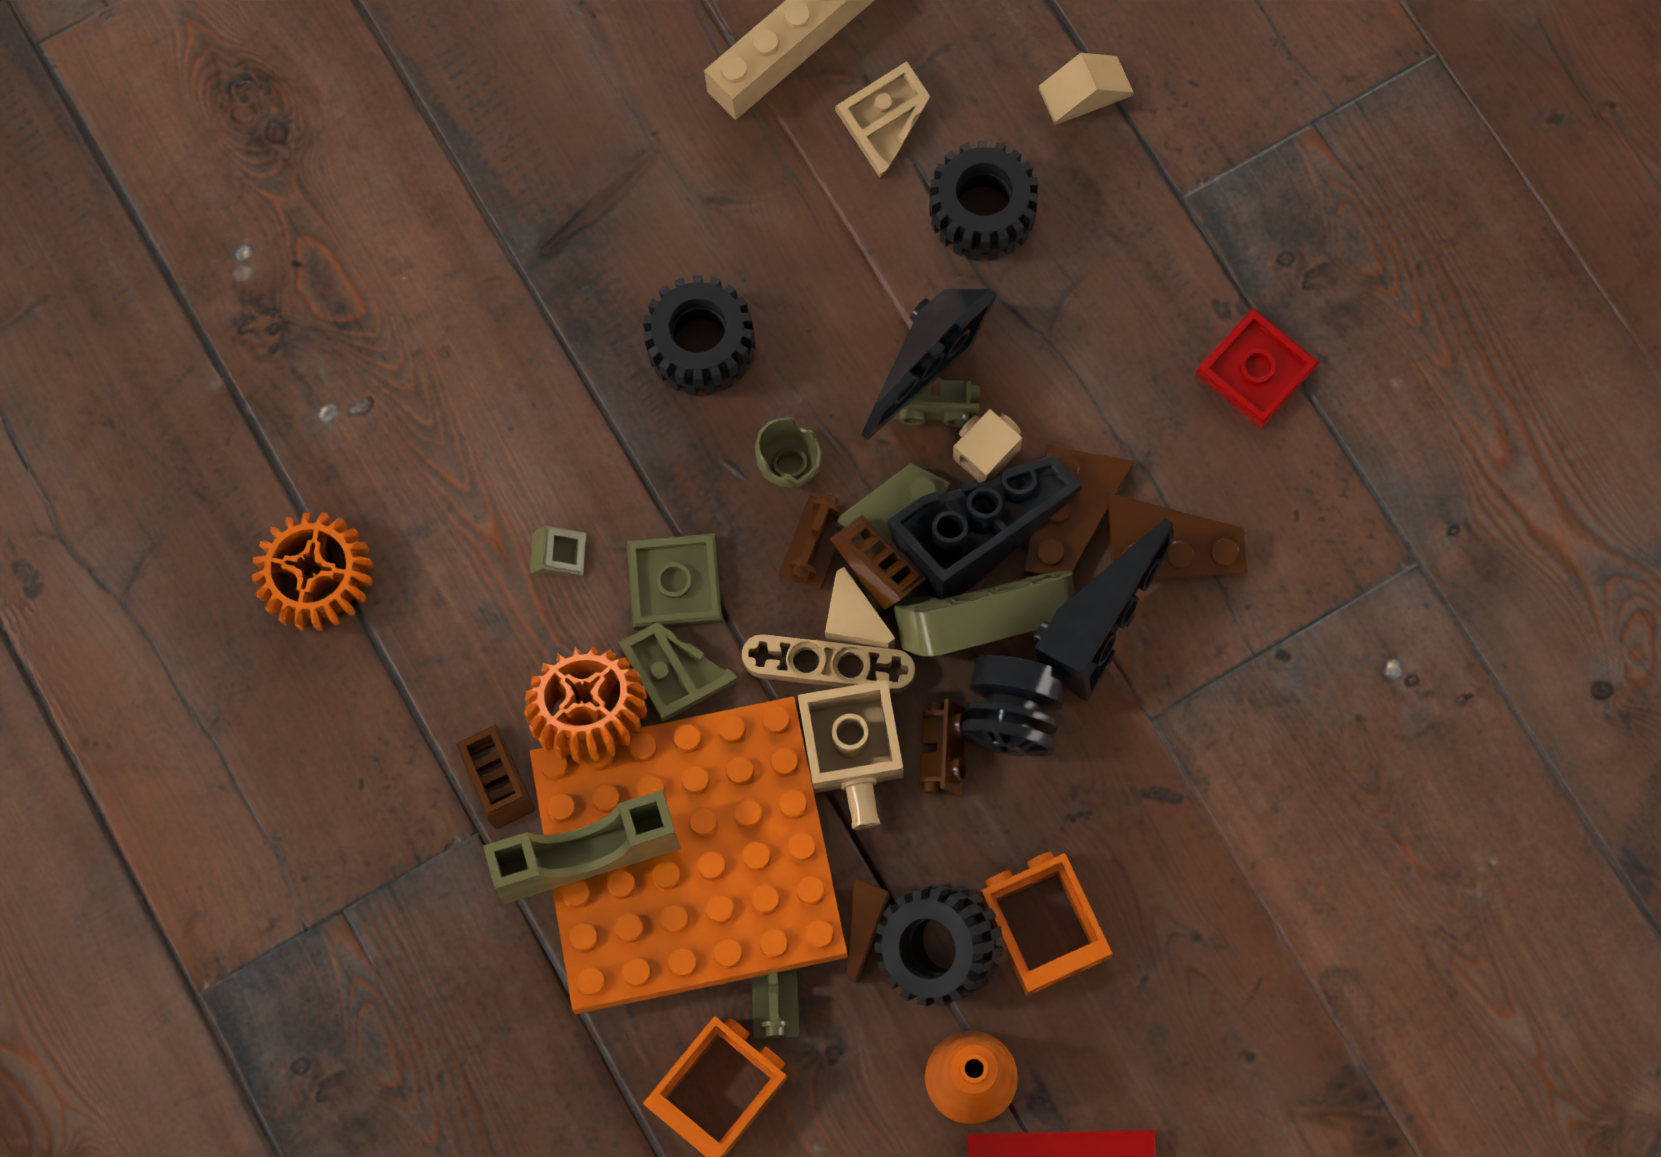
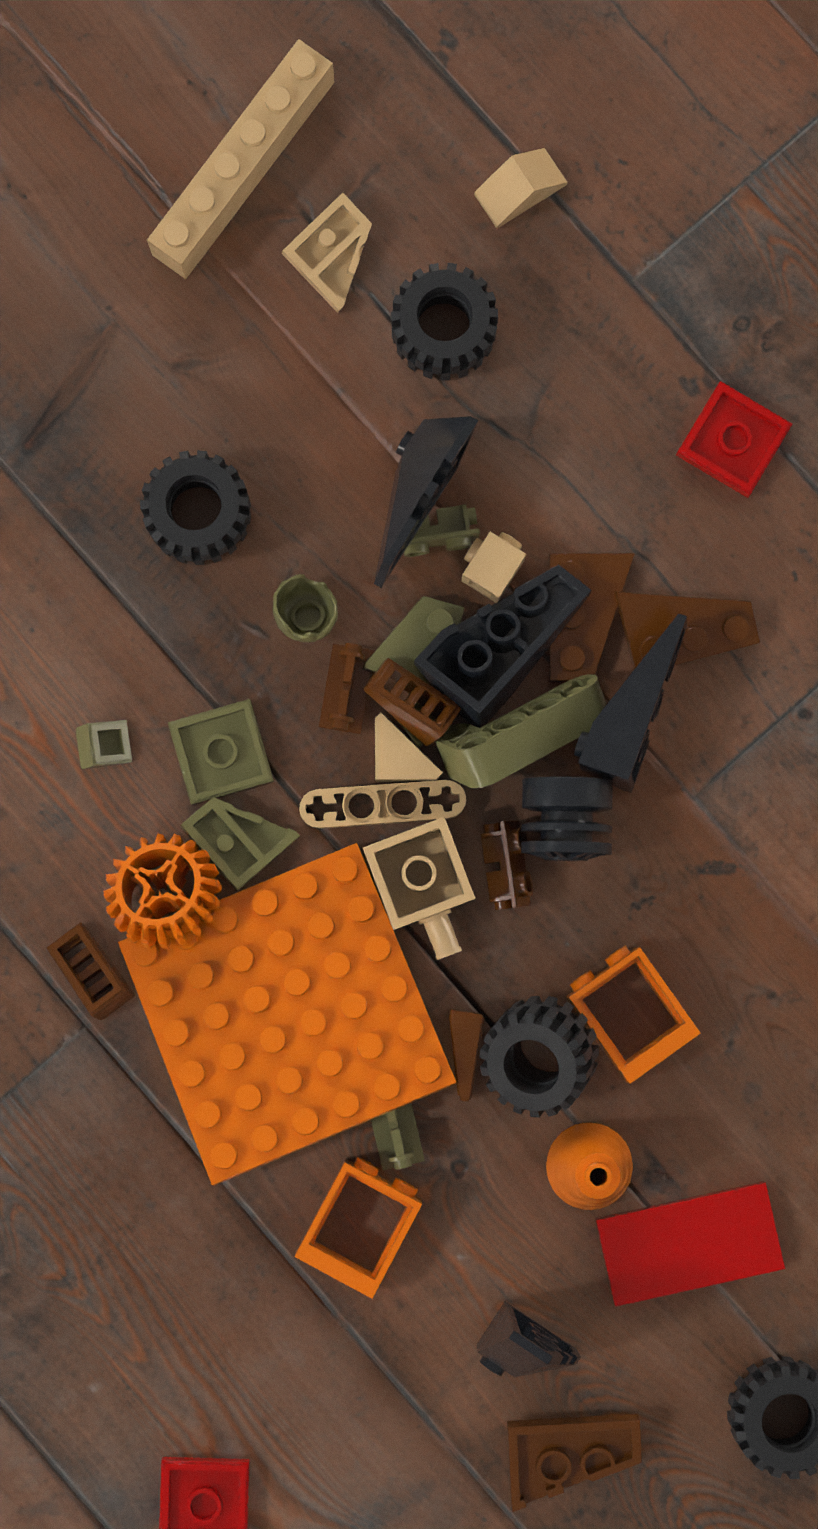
camera: 20 degrees left, 10 degrees up
(540, 863) = (170, 1048): olive arch -> none

